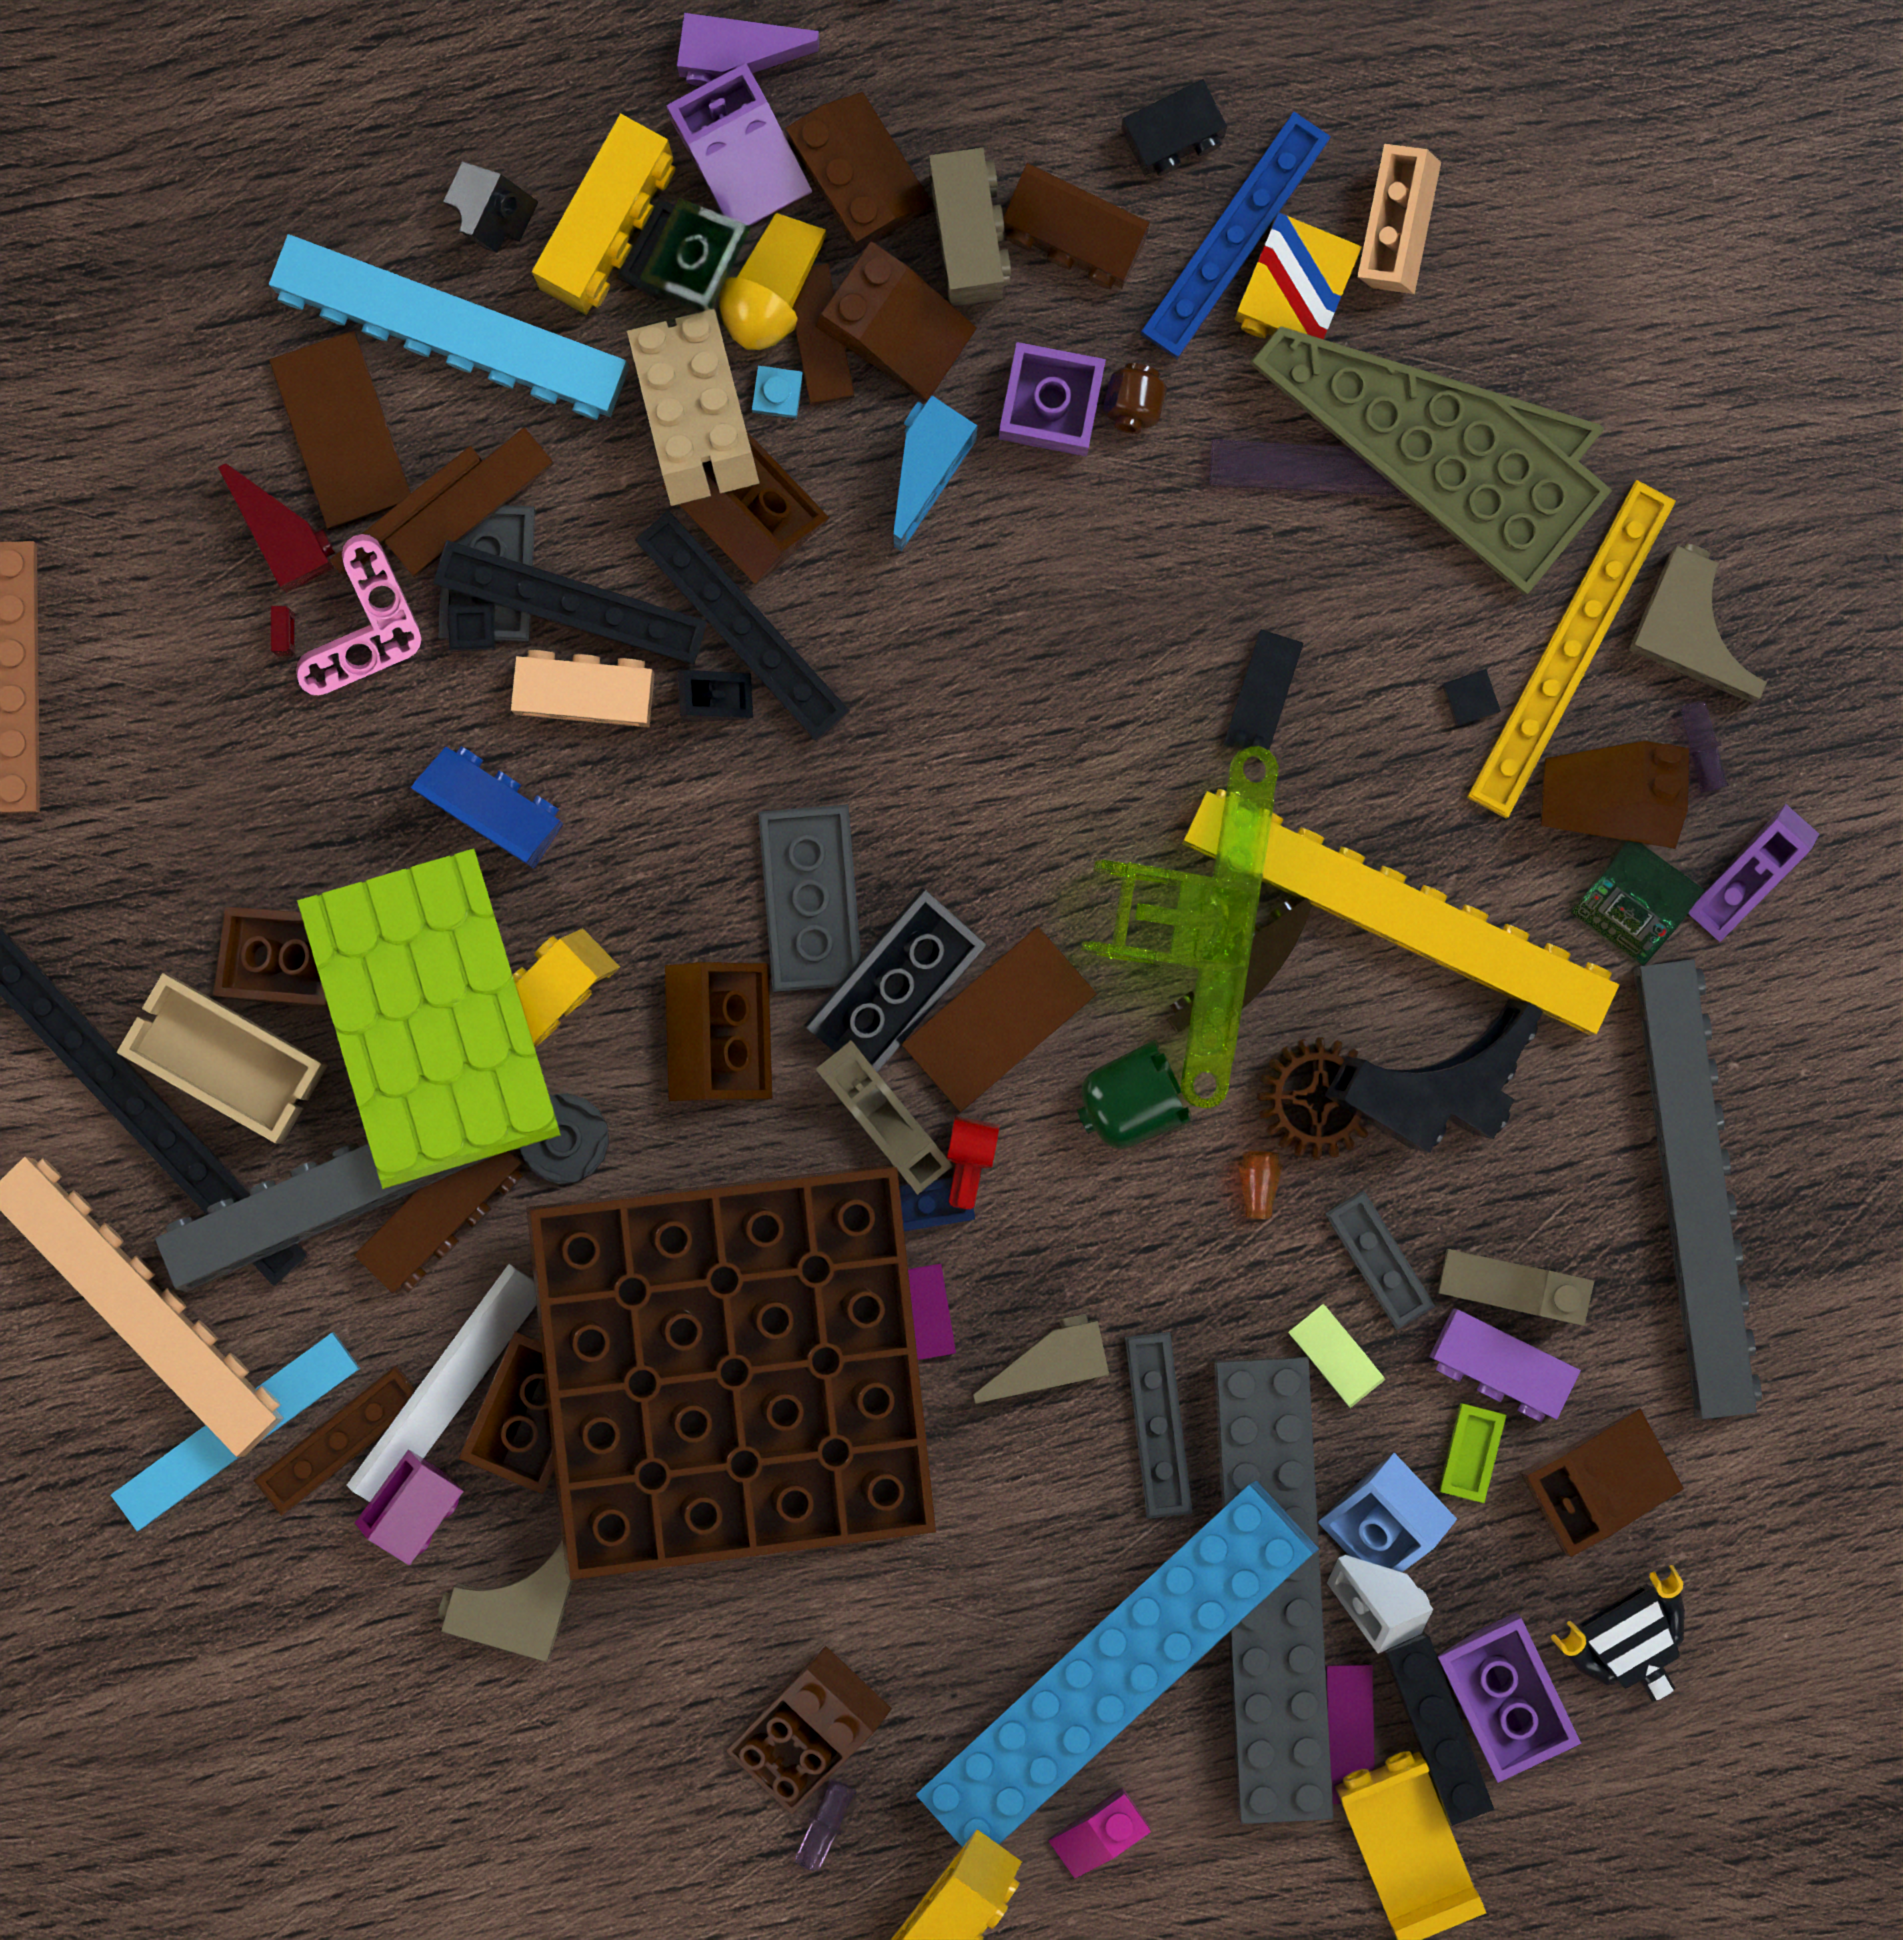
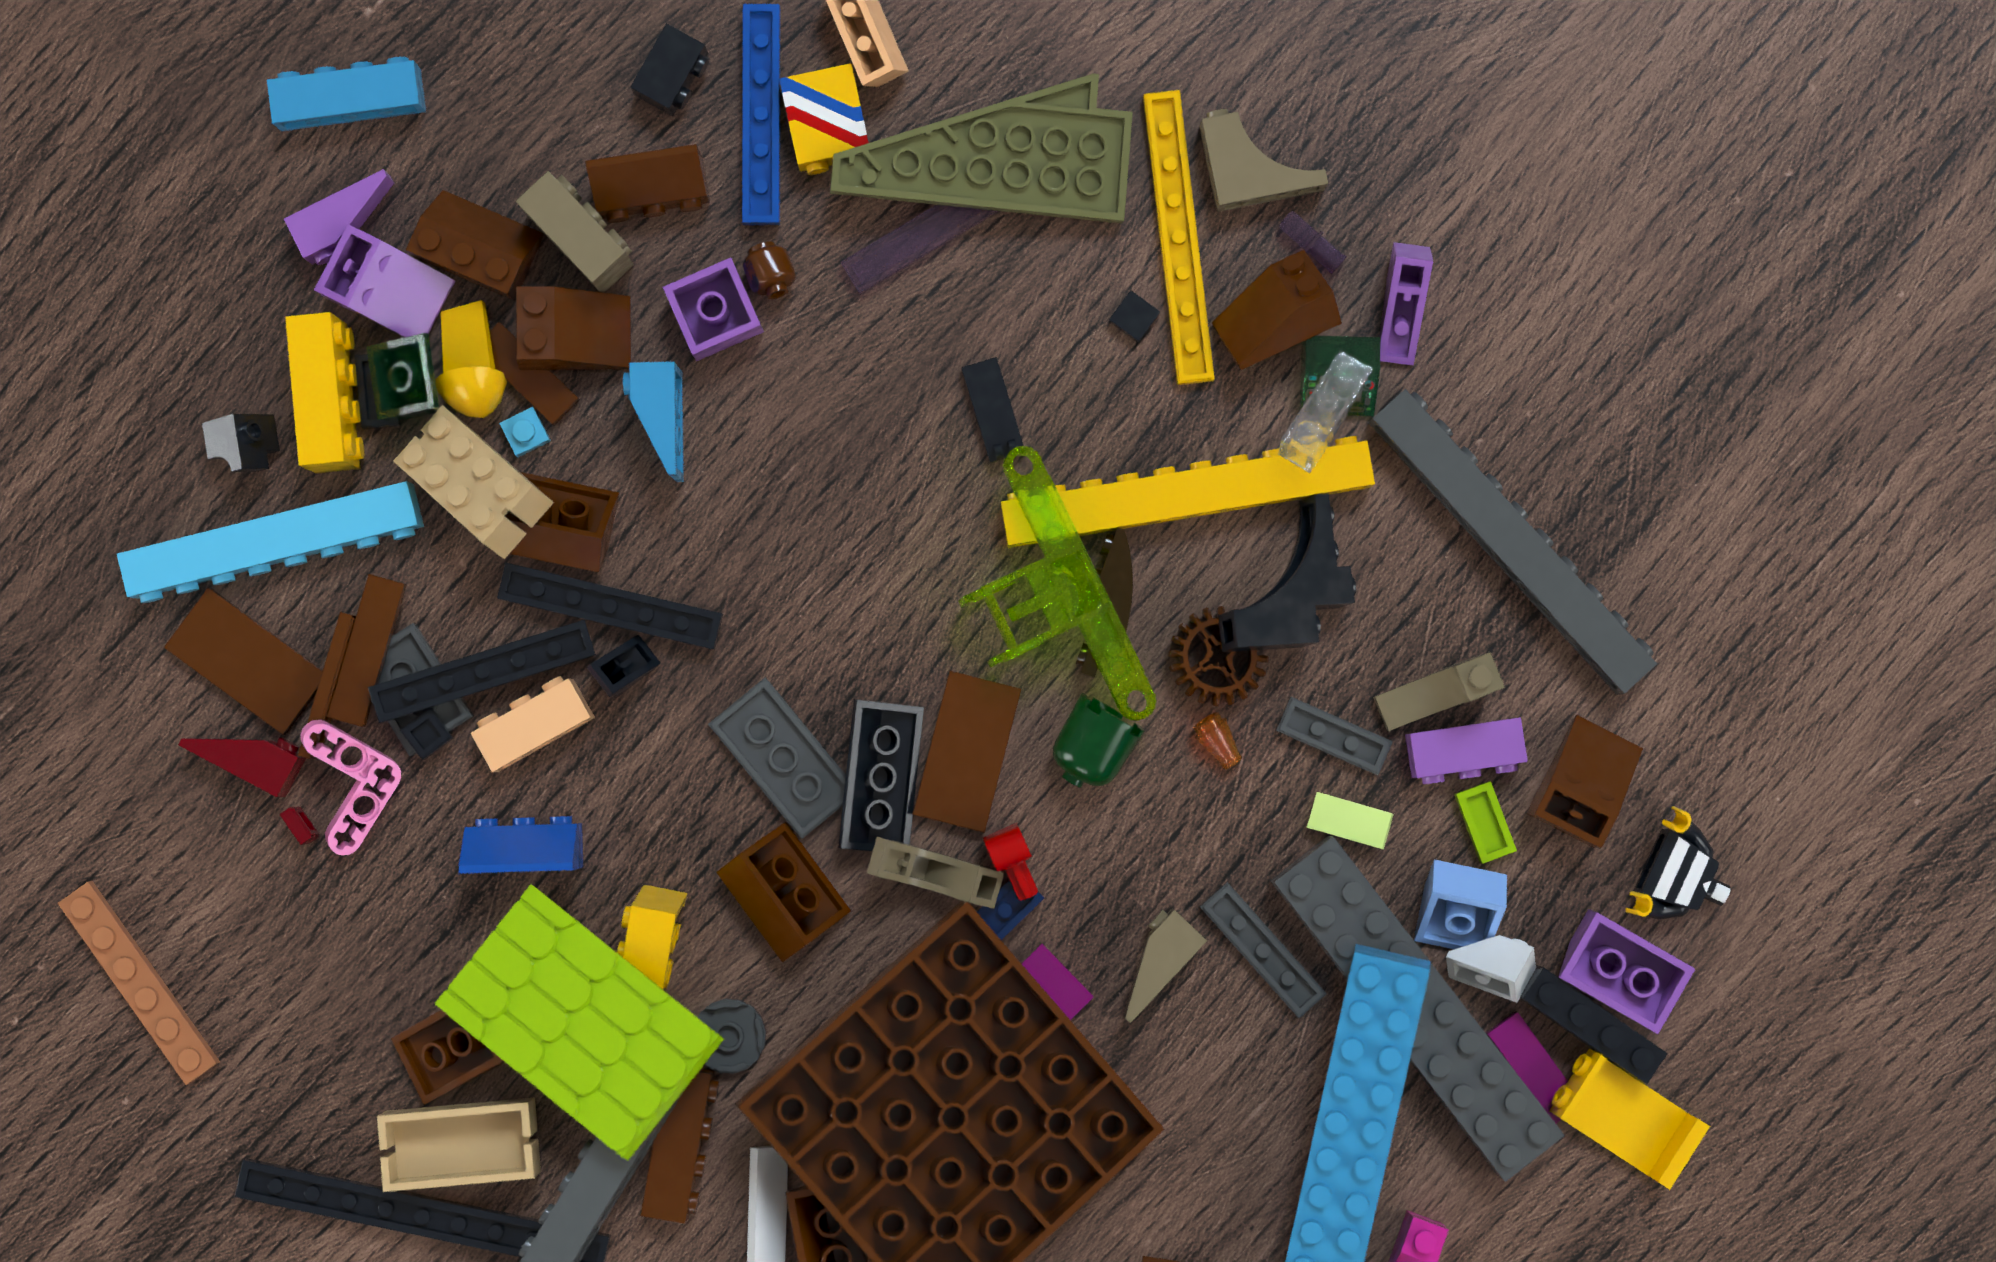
camera: 35 degrees left, 0 degrees up
(1594, 925) = (1324, 412): none -> clear slope

